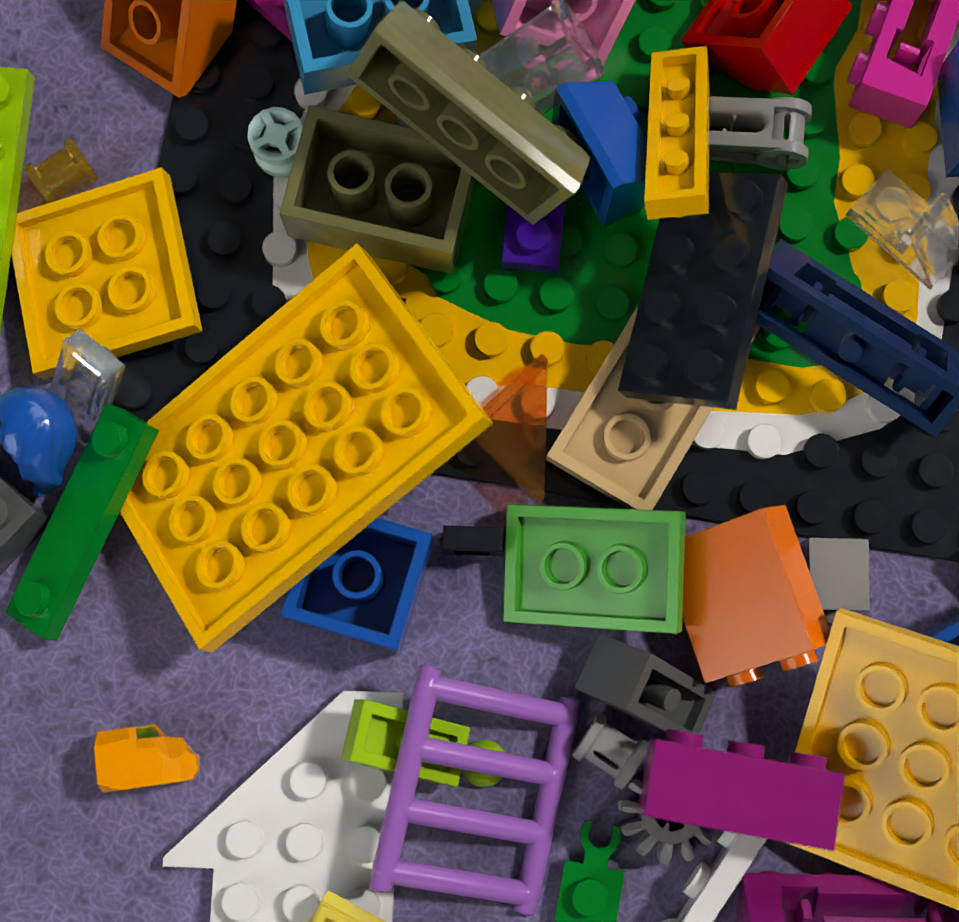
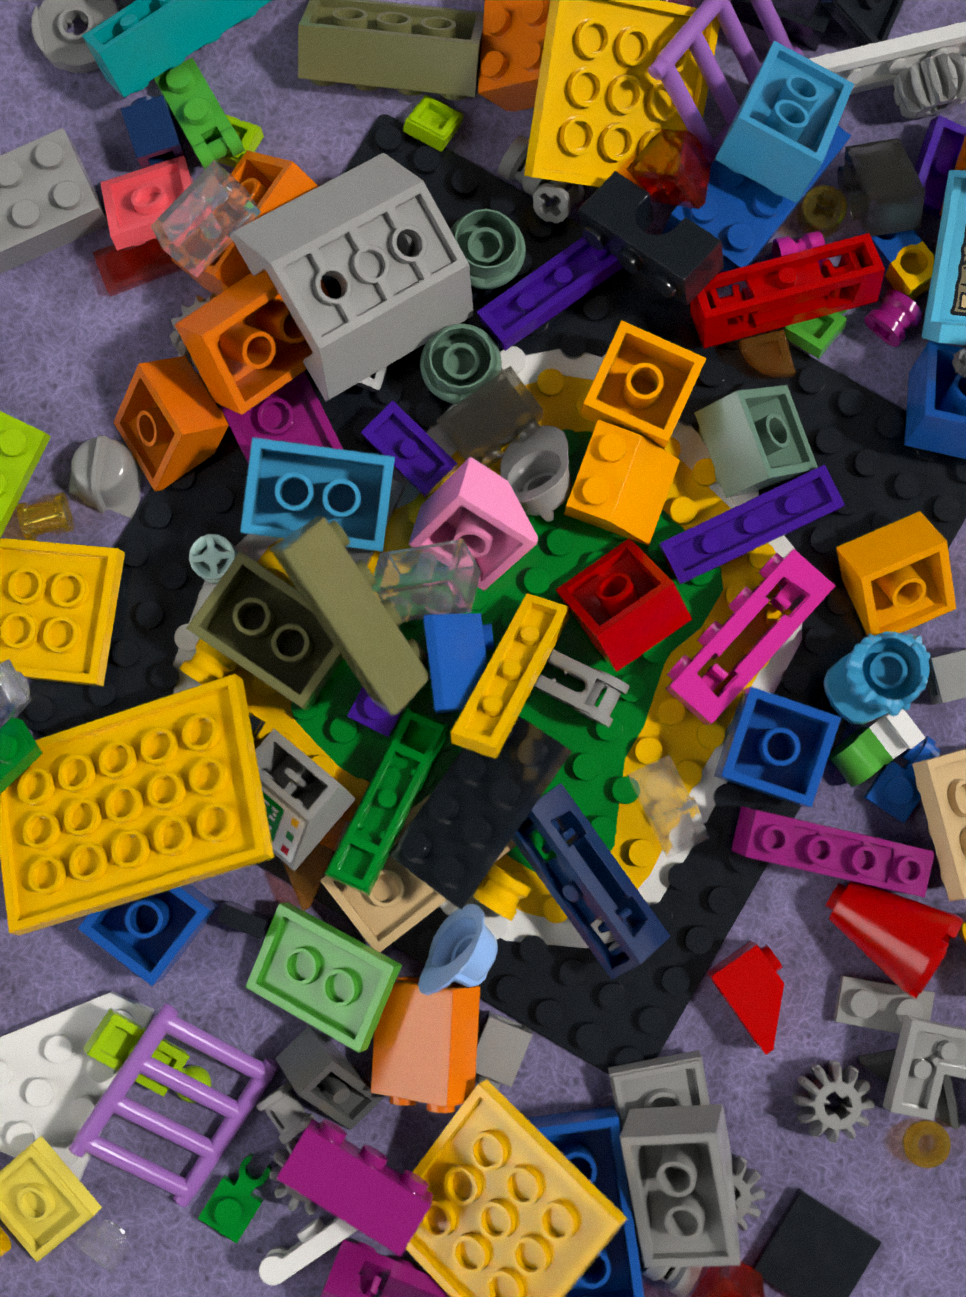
camera: 25 degrees right, 5 degrees up
(114, 104) = (106, 476): none -> light grey piece
(314, 255) = (207, 664): none -> yellow wheel
(495, 356) = (298, 799): none -> light grey slope
(590, 336) = (387, 801): none -> green plate
(744, 470) = (459, 951): none -> light blue piece
(765, 391) = (502, 892): none -> yellow wheel

